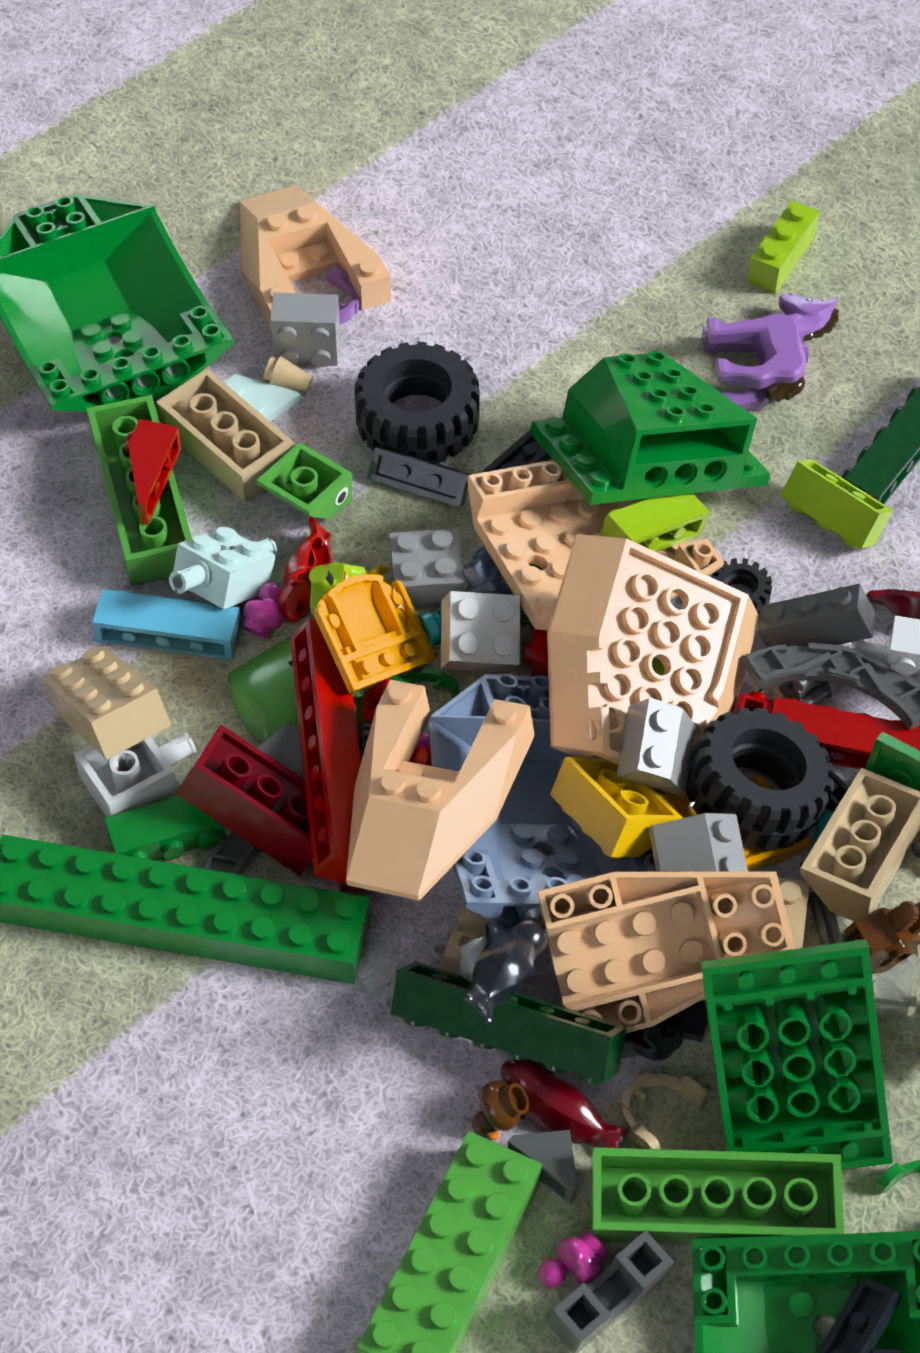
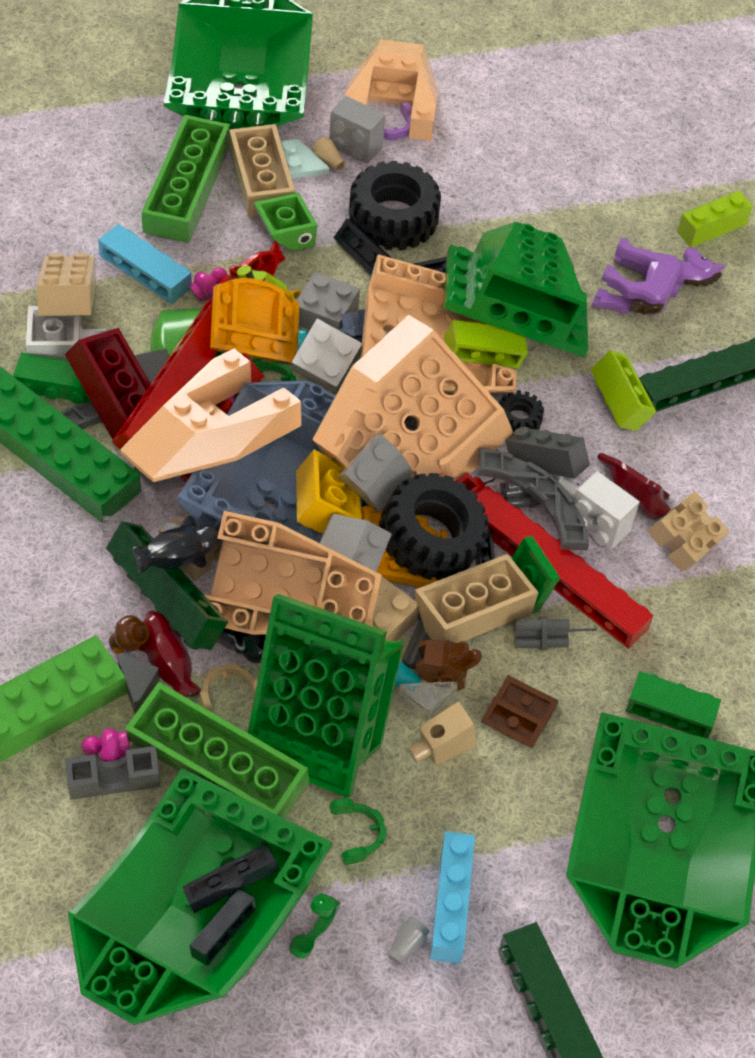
camera: 25 degrees right, 0 degrees up
(152, 455) = (195, 160): red slope -> none
(223, 566) = (198, 243): light aqua brick -> none

